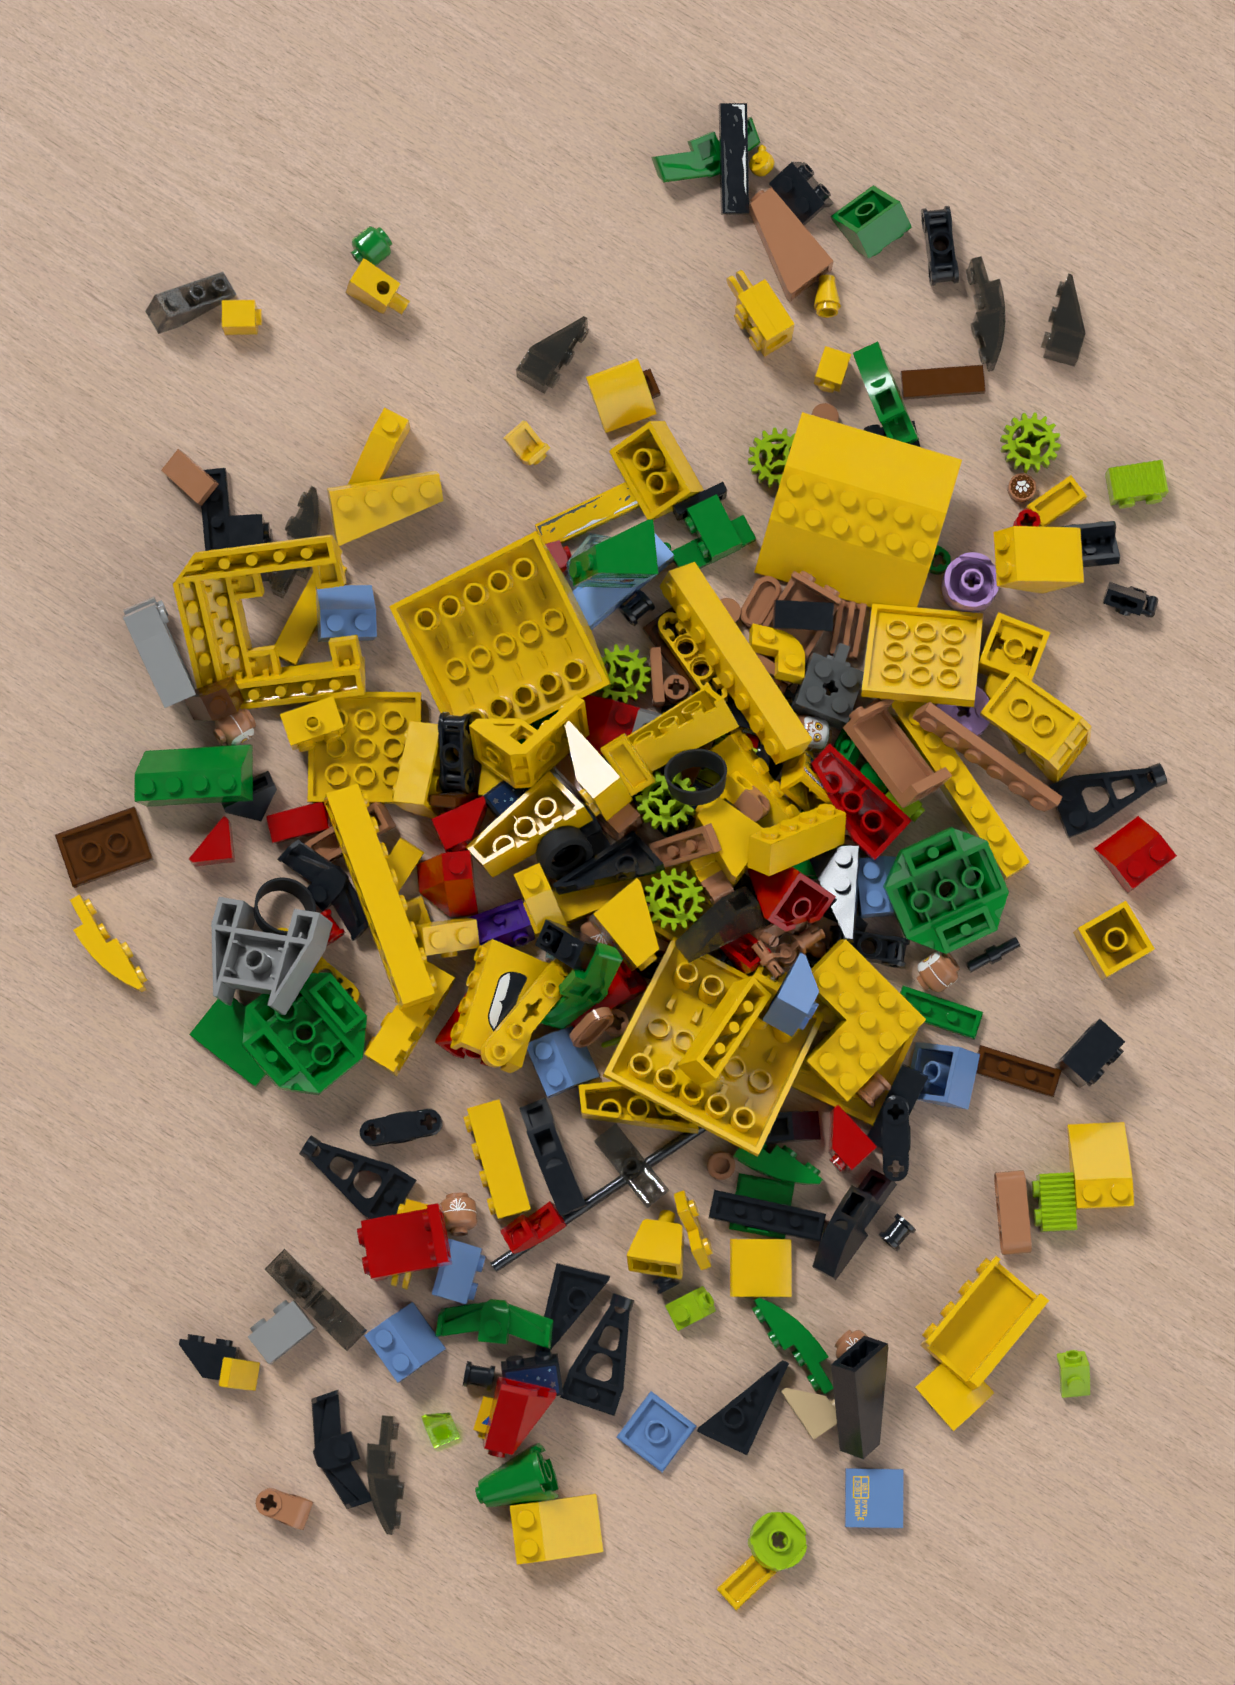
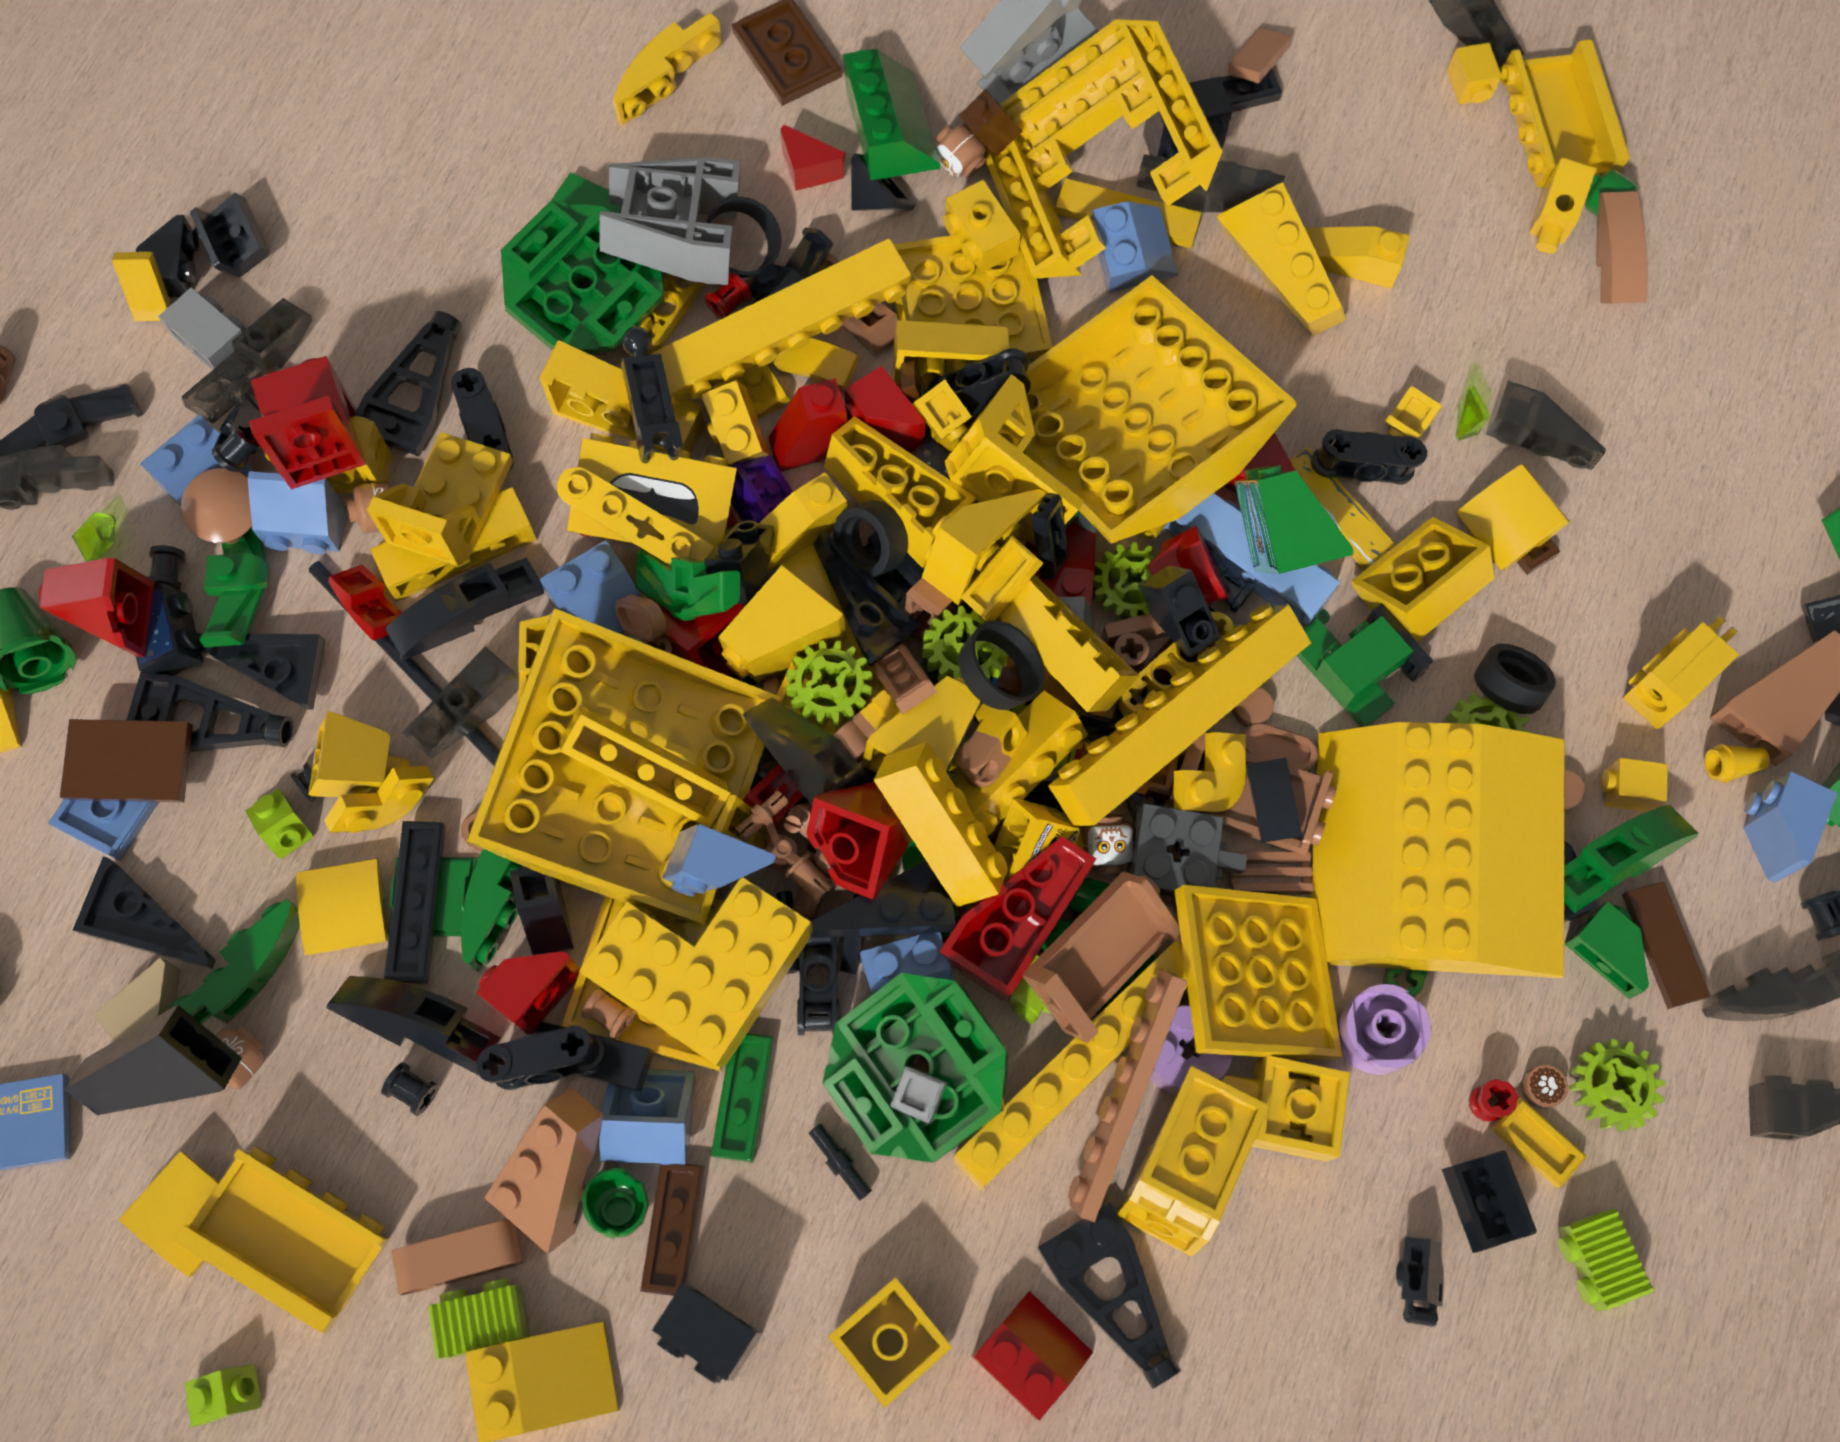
camera: 80 degrees right, 10 degrees down
(198, 1306) = (231, 236): none -> black bracket
(290, 260) = (1564, 111): none -> yellow panel
(298, 822) = (850, 233): red slope -> none
(384, 1301) = (235, 437): none -> black piece
(421, 254) = (1622, 248): none -> nougat slope
(436, 989) = (649, 396): none -> black plate
(440, 1327) = (217, 506): none -> nougat dish
(473, 1153) = (448, 502): none -> yellow bracket
(477, 781) = (943, 412): none -> yellow bracket
(532, 401) = (1471, 415): none -> clear neon green slope
(555, 484) = (1368, 456): none -> black piece
(594, 724) = (1050, 536): none -> black tile
(624, 634) = (1191, 552): none -> red slope
(629, 1409) = (126, 760): none -> reddish brown tile
(658, 646) = (1180, 609): none -> black slope
(752, 441) = (1514, 678): none -> black tyre
(881, 280) = (1787, 823): none -> medium blue slope
(937, 971) = (798, 1082): nougat head -> none
(940, 418) = (1612, 948): none -> green slope
(966, 891) = (918, 1094): none -> light grey tile
(973, 1143) = (548, 1170): none -> nougat wedge
(997, 1103) = (615, 1203): none -> green hair
(1038, 558) = (1447, 1119): yellow slope -> none

